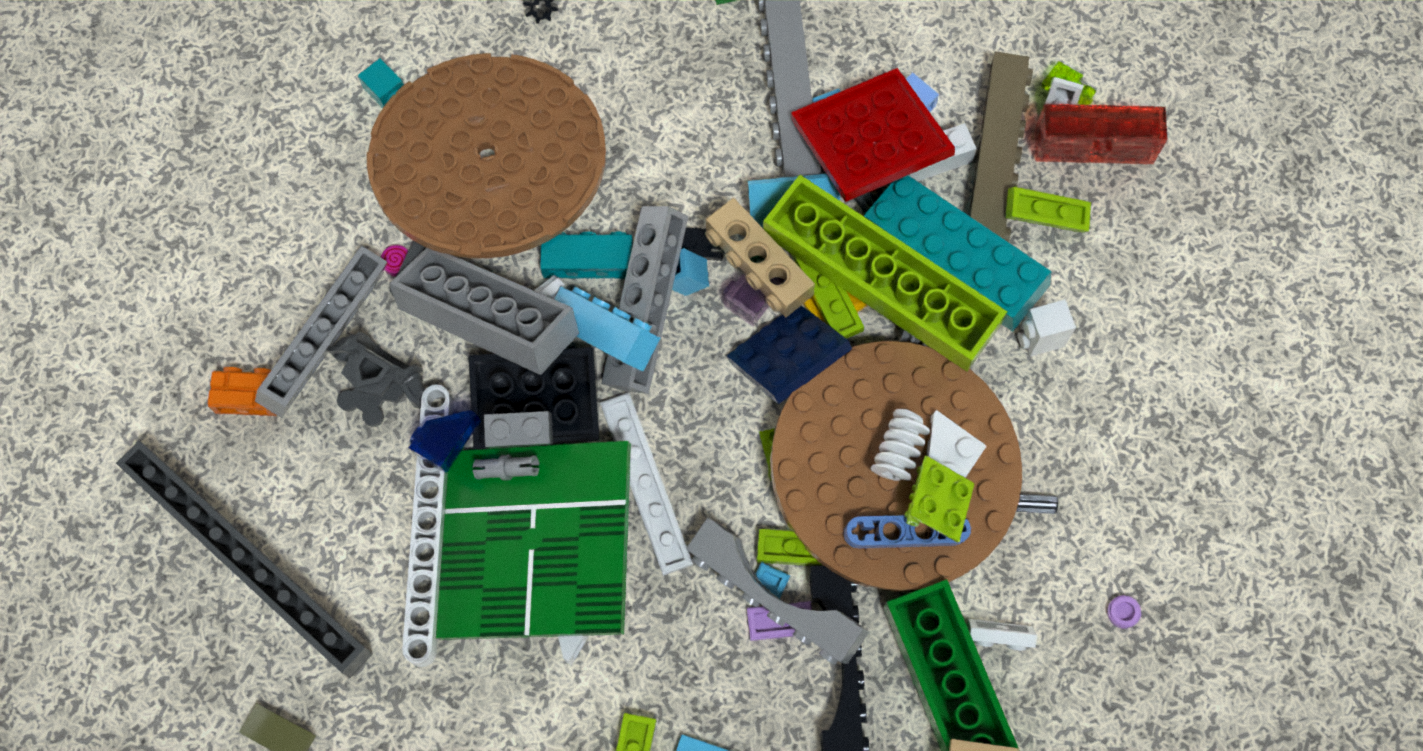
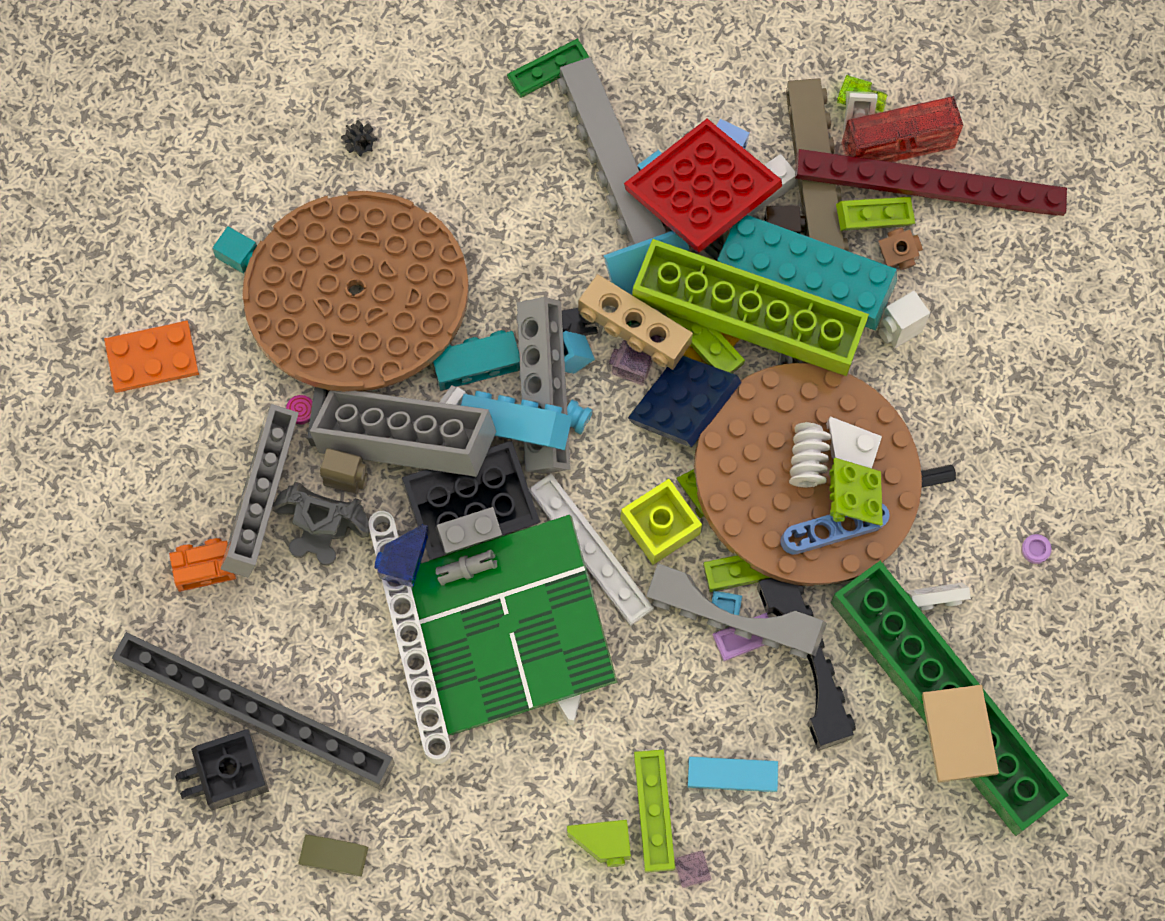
camera: 20 degrees left, 0 degrees up
(183, 600) = (211, 762): none -> black hinge
(266, 169) = (151, 356): none -> orange plate
(413, 333) = (343, 471): none -> dark tan brick
(673, 340) = (579, 415): none -> medium azure wheel
(726, 473) = (660, 521): none -> neon yellow brick
(952, 190) = (786, 217): none -> dark brown brick
(1063, 242) = (897, 238): none -> medium nougat brick
(1117, 193) = (930, 182): none -> dark red plate

